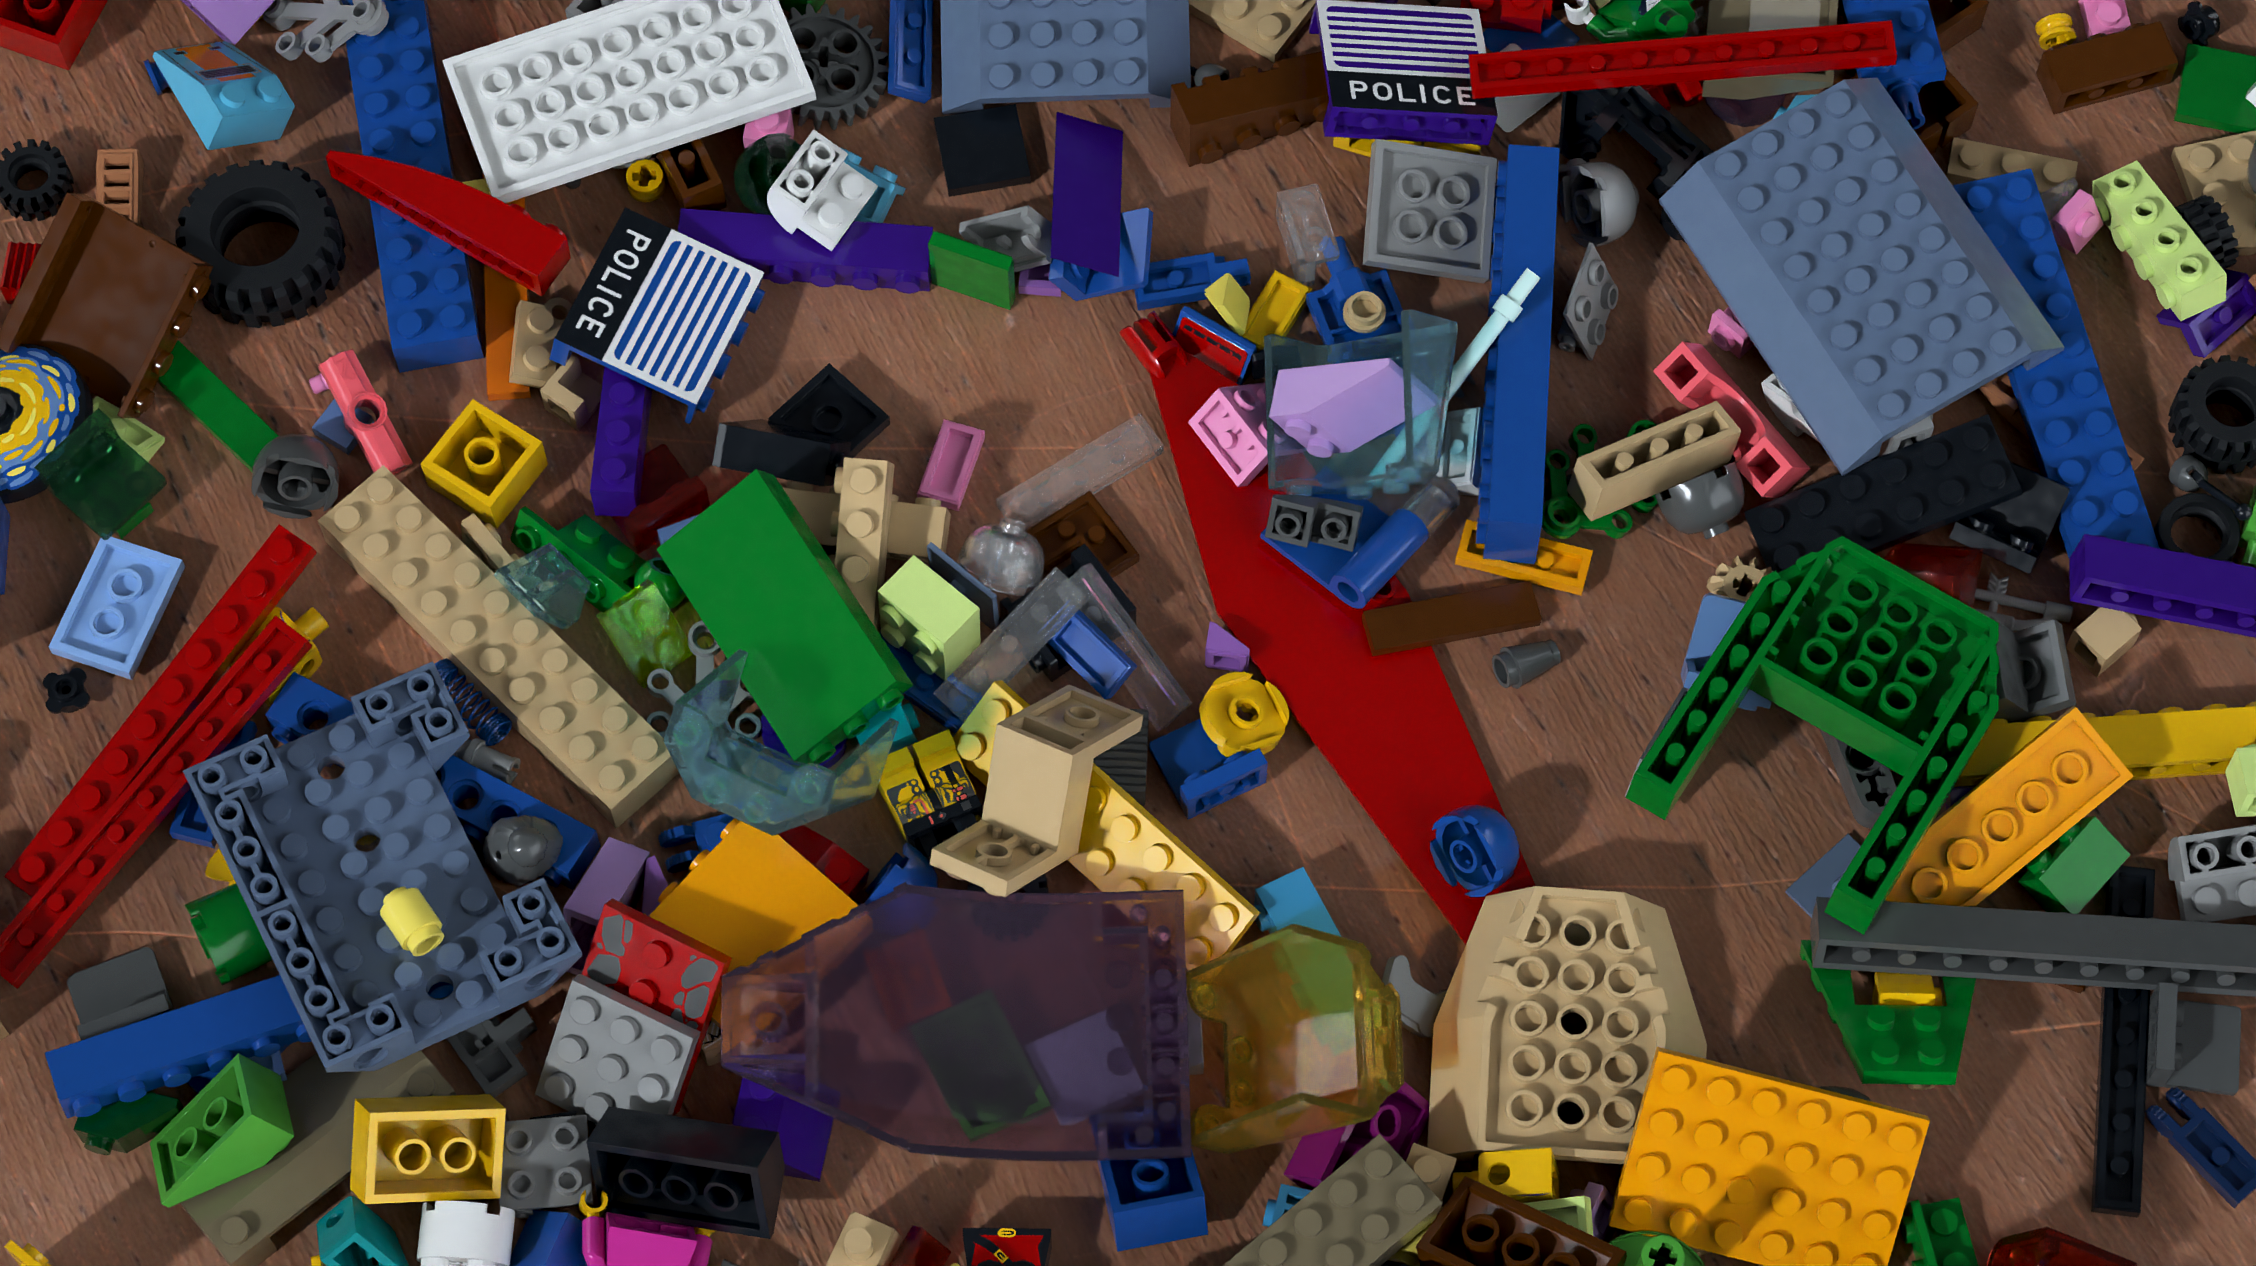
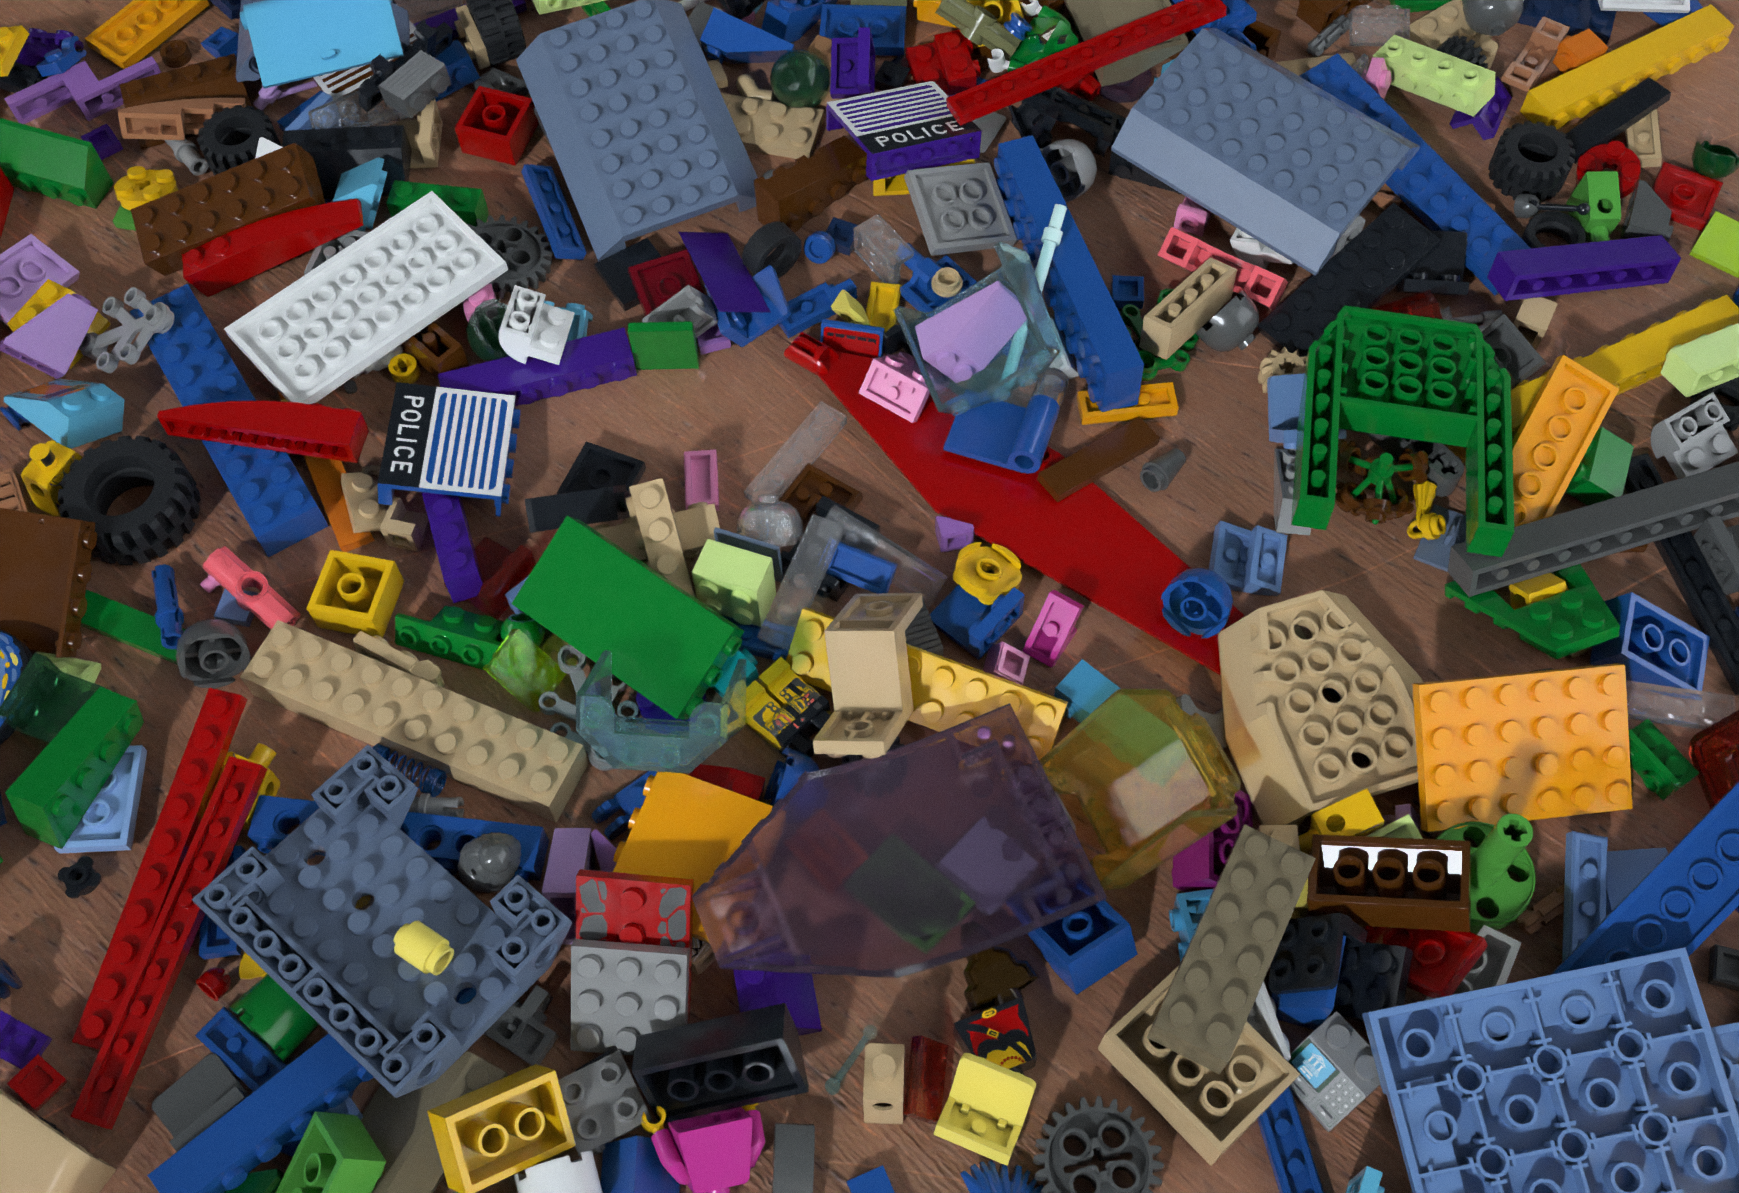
camera: 20 degrees left, 5 degrees down
(102, 561) = (74, 767): none -> green wedge
(175, 869) = (213, 983): none -> red hinge
(176, 175) = (46, 472): none -> yellow torso
(179, 955) = (240, 1049): none -> blue tile
(261, 409) = (168, 614): none -> blue pin
(546, 585) = (436, 661): clear light blue slope -> none
(806, 1245) = (832, 1085): none -> clear light blue hinge
(1010, 179) = (662, 279): none -> dark red plate
(1036, 1197) = (995, 978): none -> dark brown rock
(1163, 183) = (764, 241): none -> black tyre
(1217, 838) = (1007, 662): none -> bright pink slope
(1228, 198) = (819, 247): none -> blue tile
(1260, 191) = (843, 235): none -> dark blue plate
(1290, 816) = (1053, 628): none -> dark pink slope
(1314, 519) = (979, 422): dark grey slope -> none
(1574, 816) = (1249, 559): none -> medium blue slope
(1588, 306) = (1092, 229): light grey hinge -> none
(1597, 404) = (1127, 290): none -> blue plate
(1784, 764) = (1377, 472): none -> reddish brown plant
(1822, 858) = (1430, 523): none -> yellow piece
(1989, 1187) = (1677, 705): none -> clear plate
(2012, 1114) = (1653, 645): none -> blue slope
(2059, 123) = (1328, 36): none -> dark grey axle
(2133, 136) = (1377, 25): none -> clear bracket

